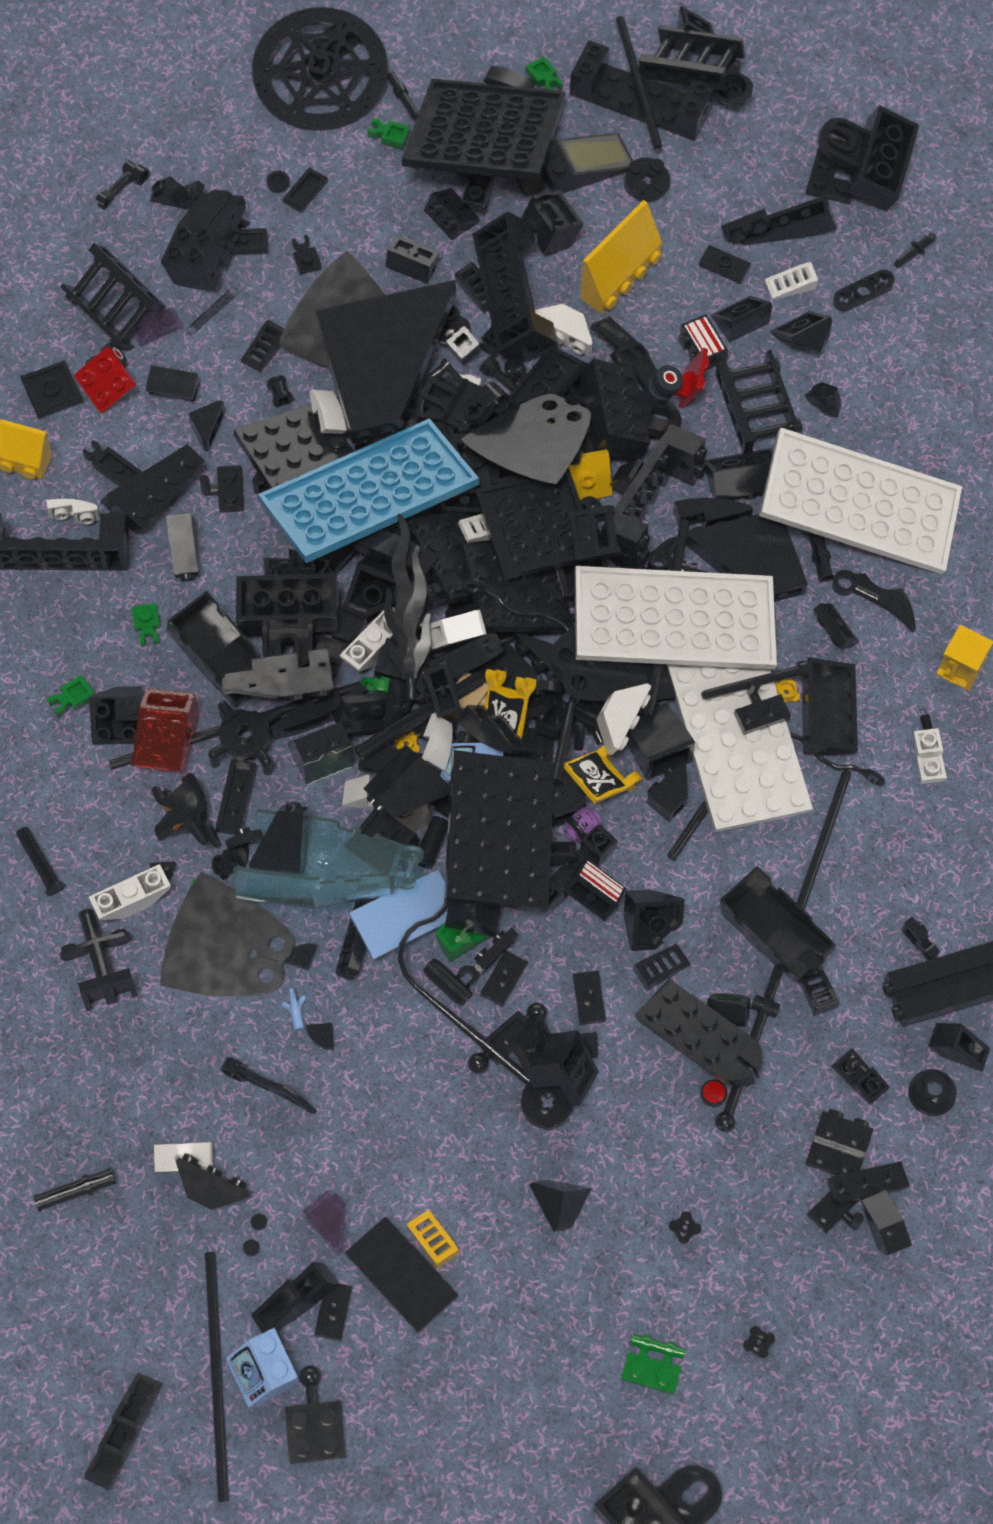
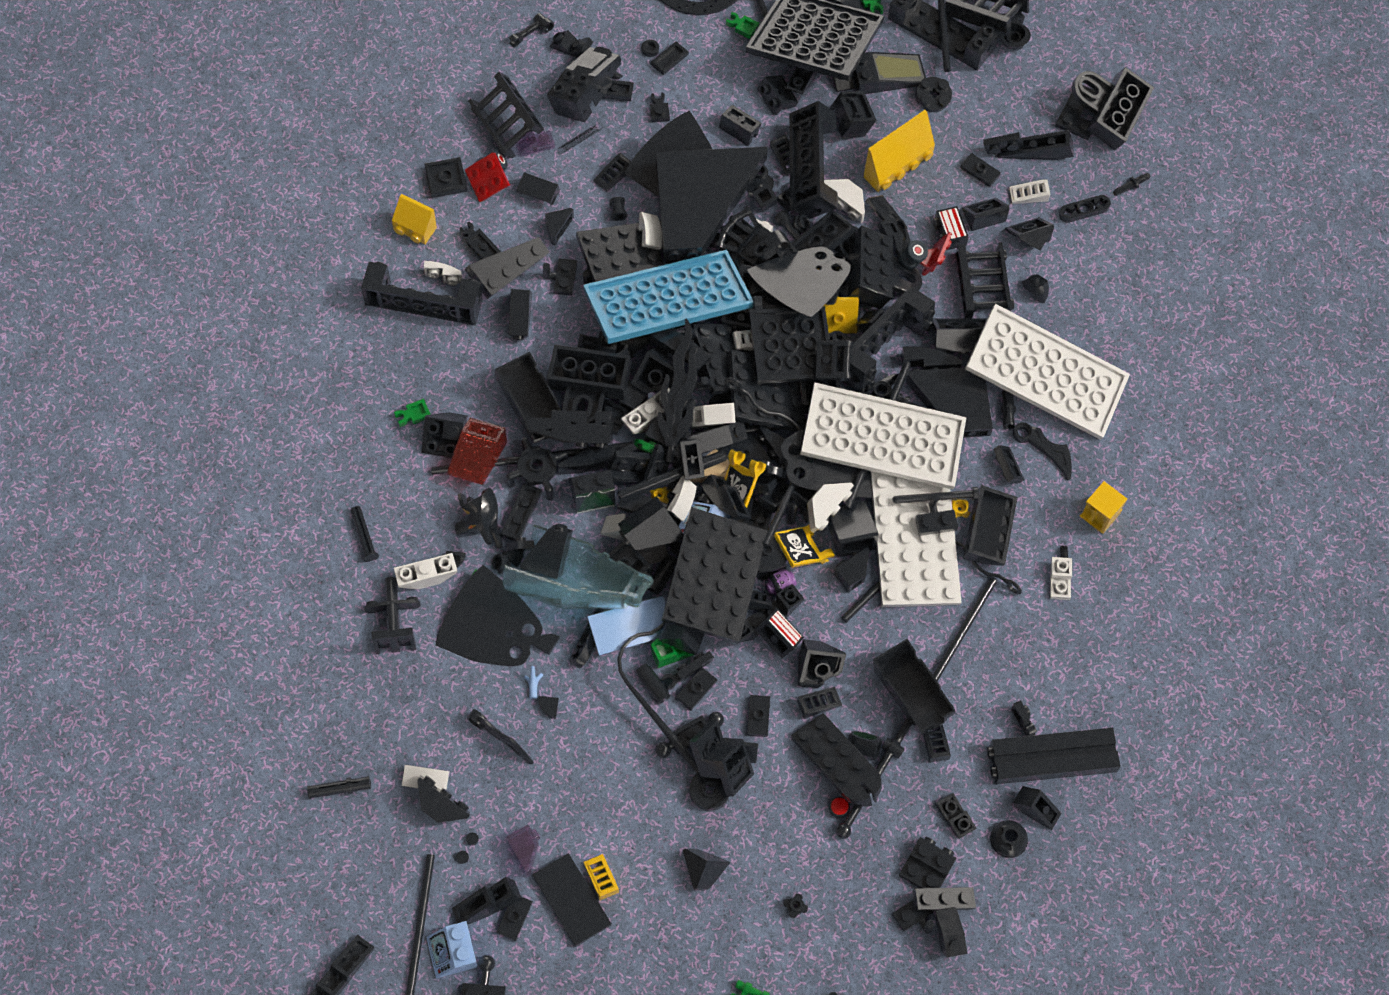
camera: 10 degrees right, 0 degrees up
(146, 620) = (481, 366): green plate -> none

